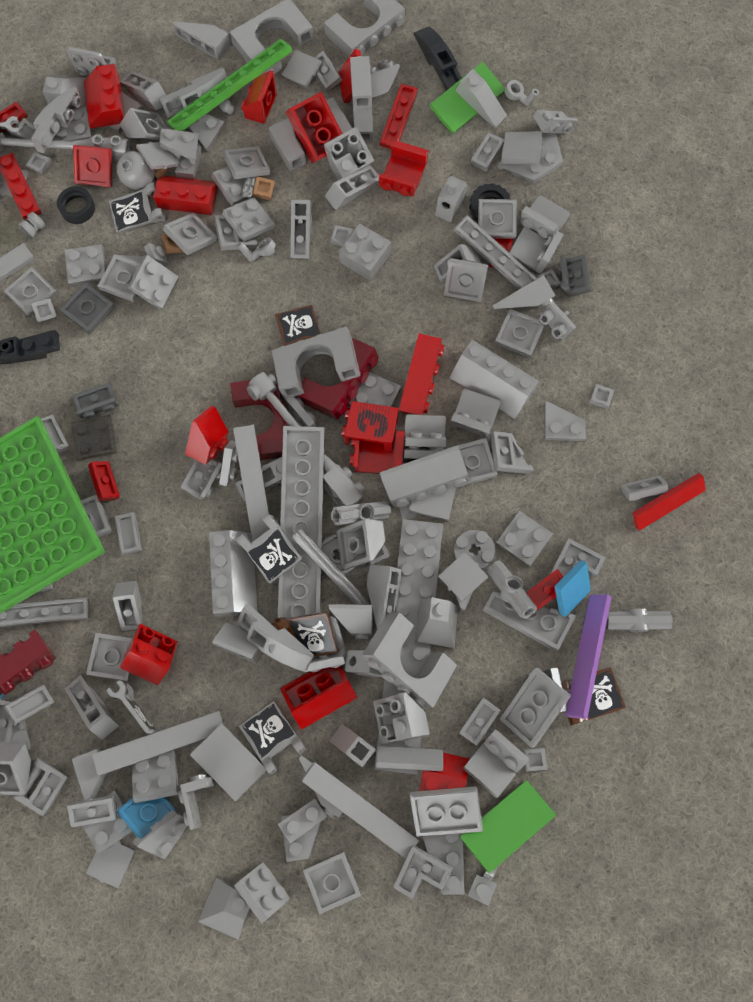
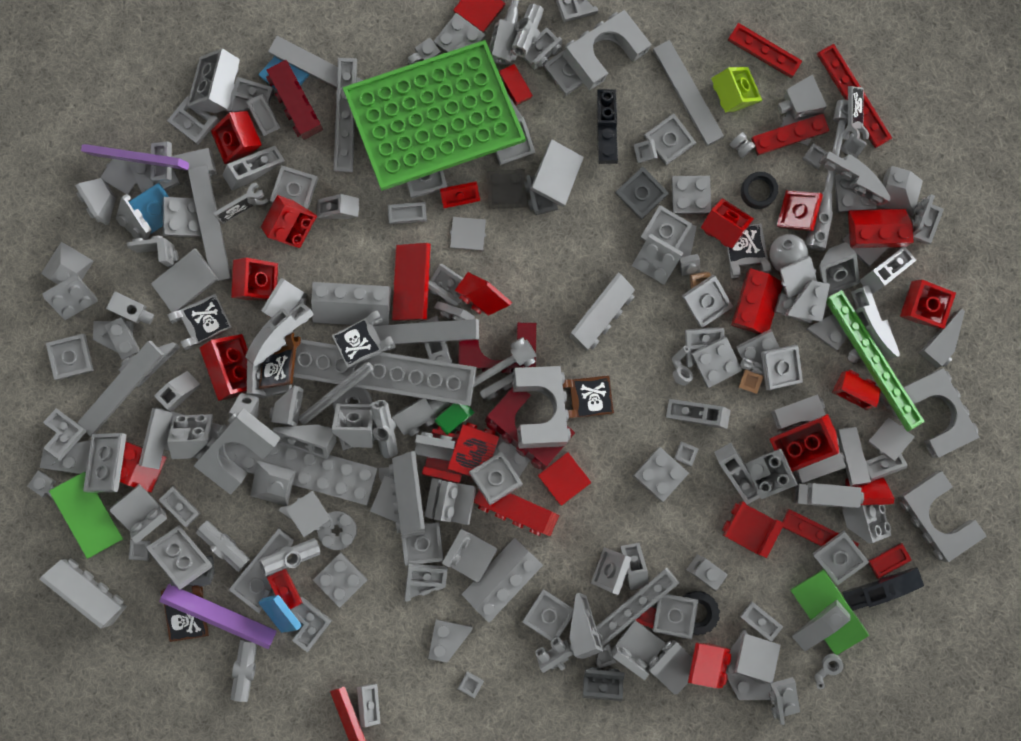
camera: 95 degrees right, 10 degrees up
(57, 732) = (235, 136): none -> red slope
(72, 387) = (557, 173): none -> light grey tile
(88, 842) = (132, 156): none -> medium lavender tile
(112, 226) = (726, 223): none -> red slope
(140, 880) = (98, 199): none -> light grey slope
(144, 469) = (468, 233): none -> light grey piece
(171, 52) = (927, 304): none -> red slope
(201, 513) = (411, 282): none -> red tile
(212, 325) = (602, 312): none -> light grey slope
(218, 683) = (253, 279): none -> red slope
(263, 827) = (122, 306): none -> light grey torso
(334, 88) = (854, 457): none -> light grey tile
(338, 447) = (454, 417): none -> green slope
(371, 462) = (434, 447): none -> light grey bracket
(386, 338) = (564, 479): none -> red tile
(394, 394) = (495, 478): none -> light grey tile
(411, 59) = (889, 560): none -> red tile
(416, 92) = (840, 557): none -> light grey plate
(513, 666) = (223, 546): none -> light grey piece
(537, 183) = (709, 665): none -> slope
(594, 809) = (84, 592): none -> light grey slope

